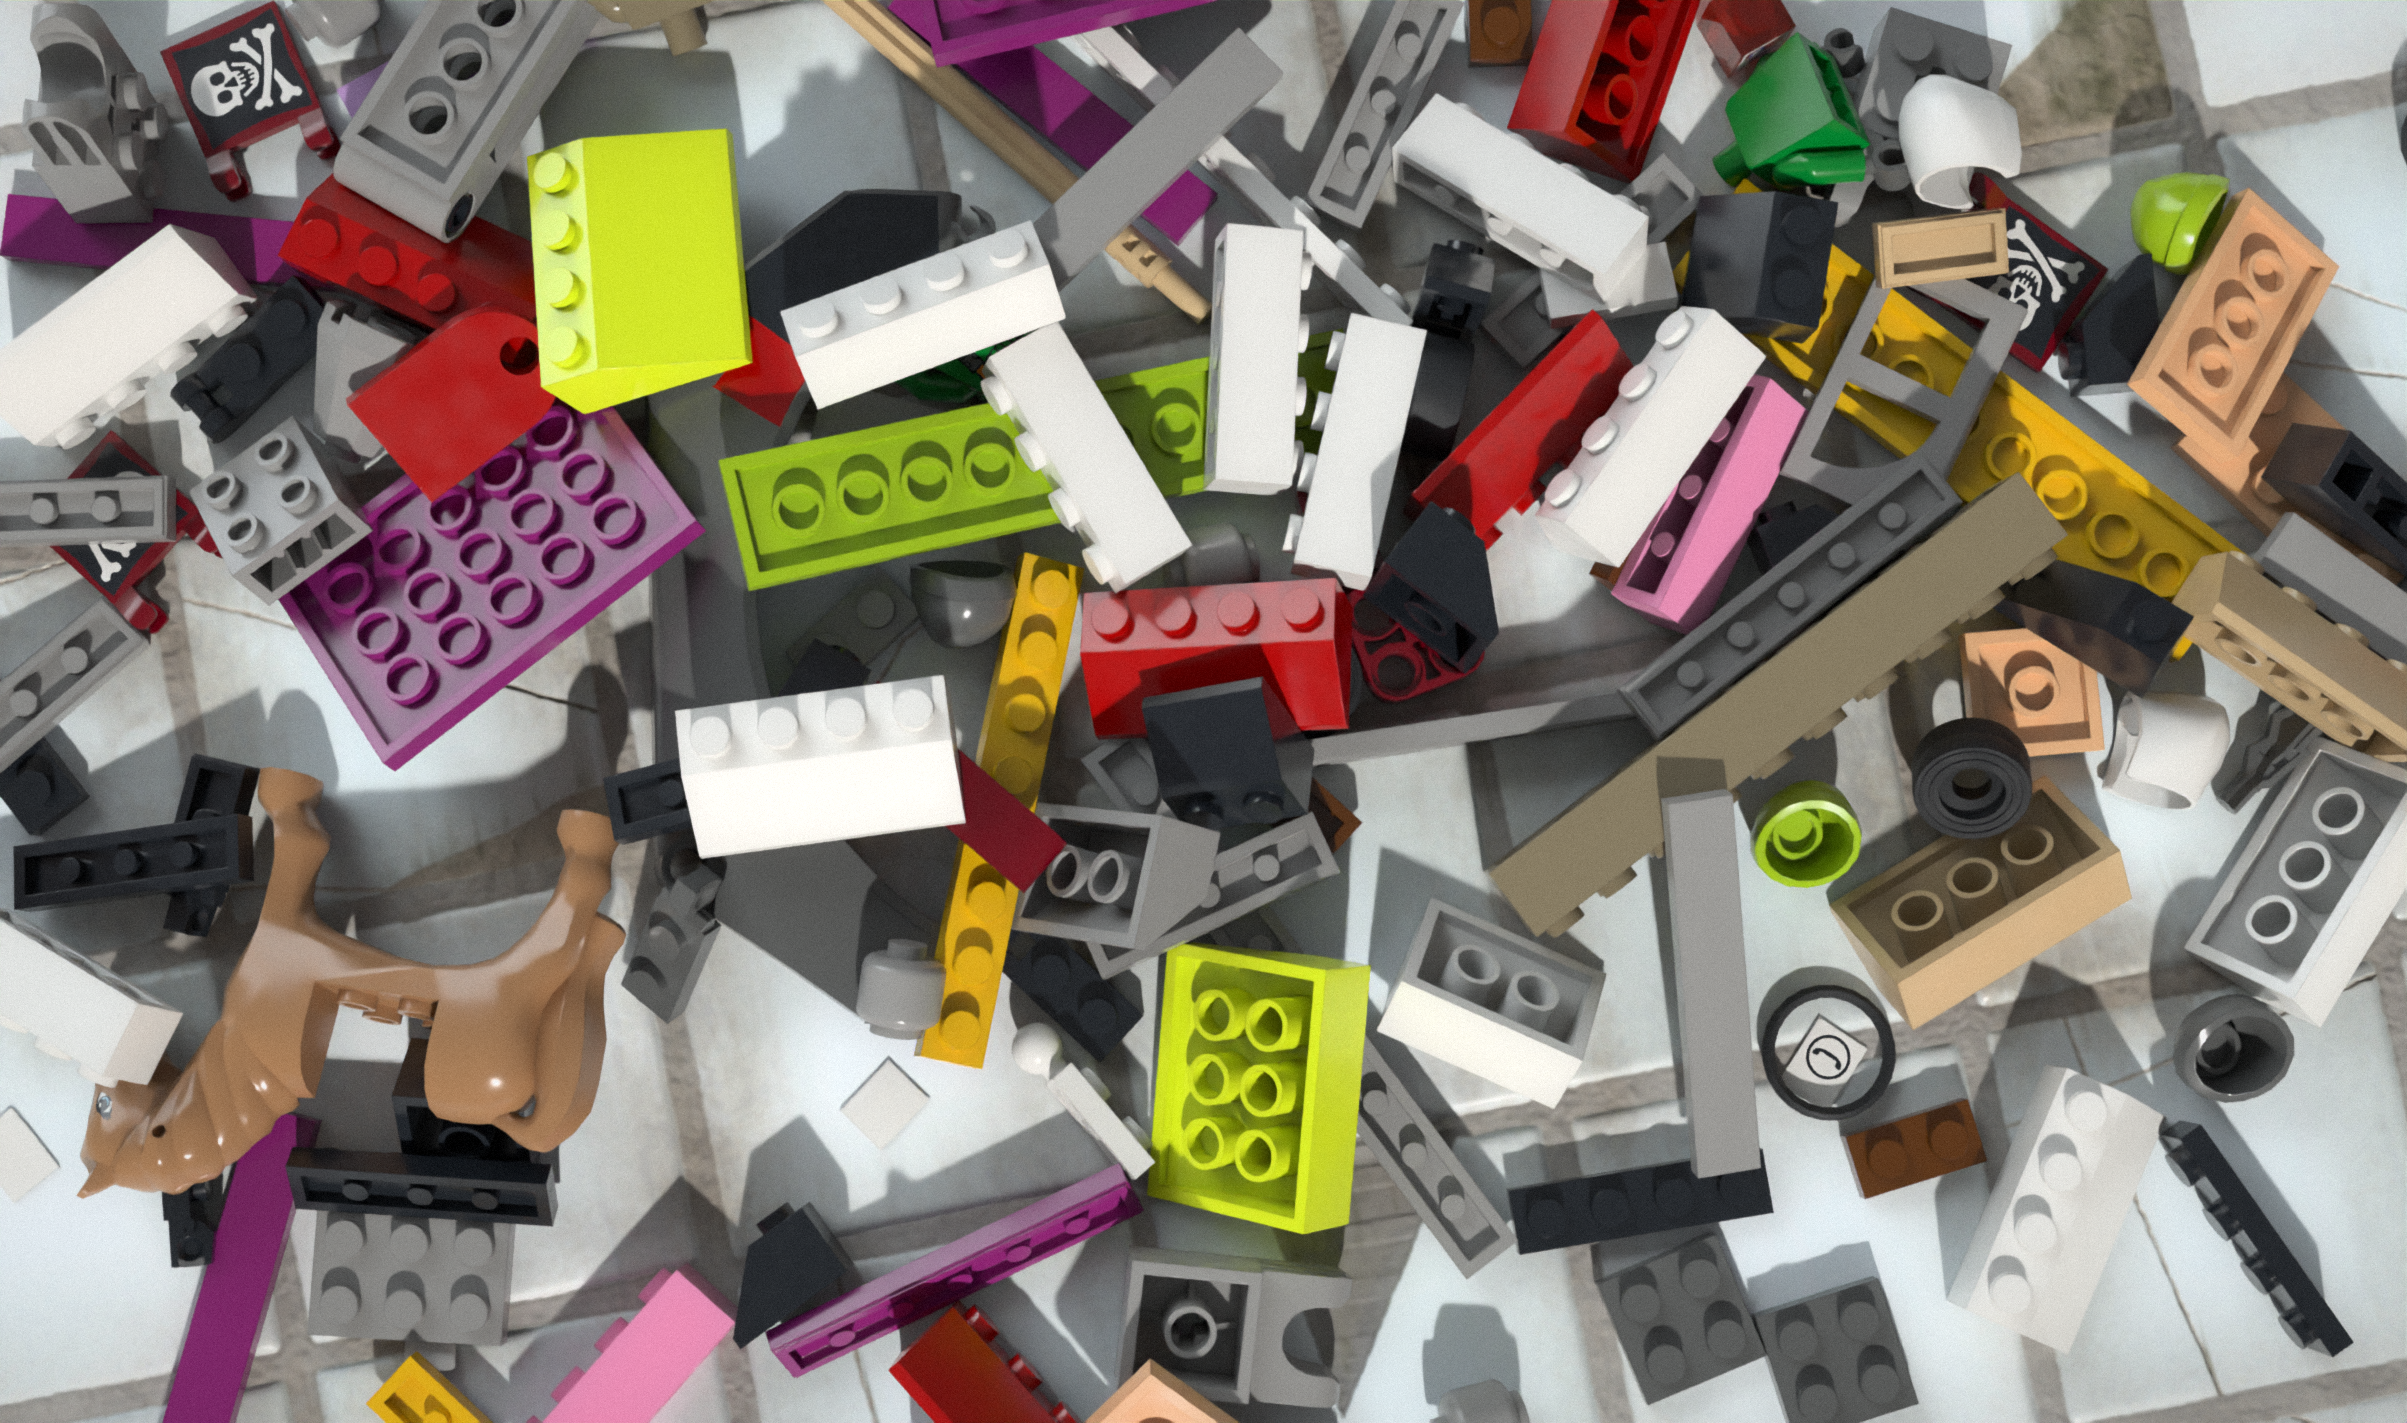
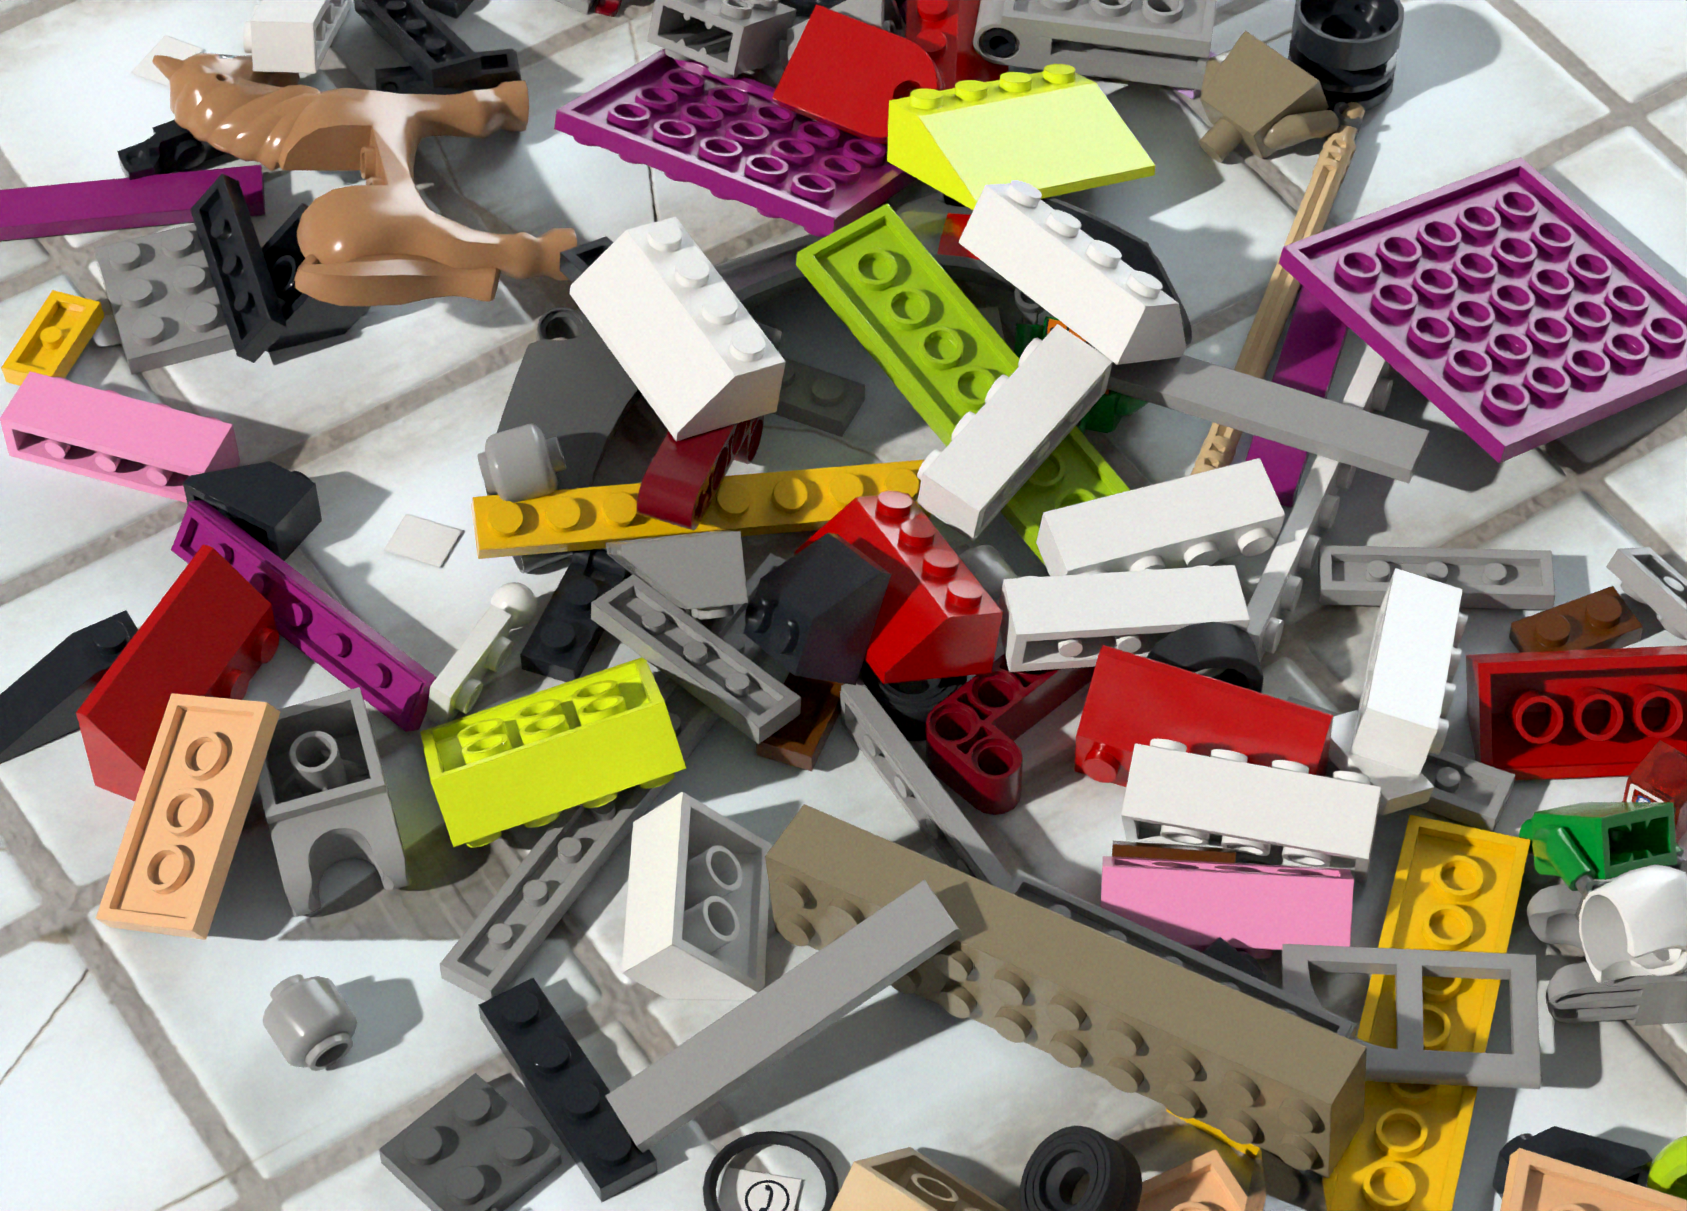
camera: 70 degrees right, 35 degrees down
(674, 944) = (497, 339): dark grey hinge -> none
(962, 600) = (858, 430): dark grey hat -> none
(1440, 586) = (1040, 686): black slope -> none
(1454, 290) = (1301, 645): black slope -> none
(1761, 261) = (1457, 866): black slope -> none
(1806, 835) = (962, 1076): lime hat -> none
(1940, 248) = (1551, 980): tan tile -> none
(2044, 277) = (1582, 1086): flag -> none

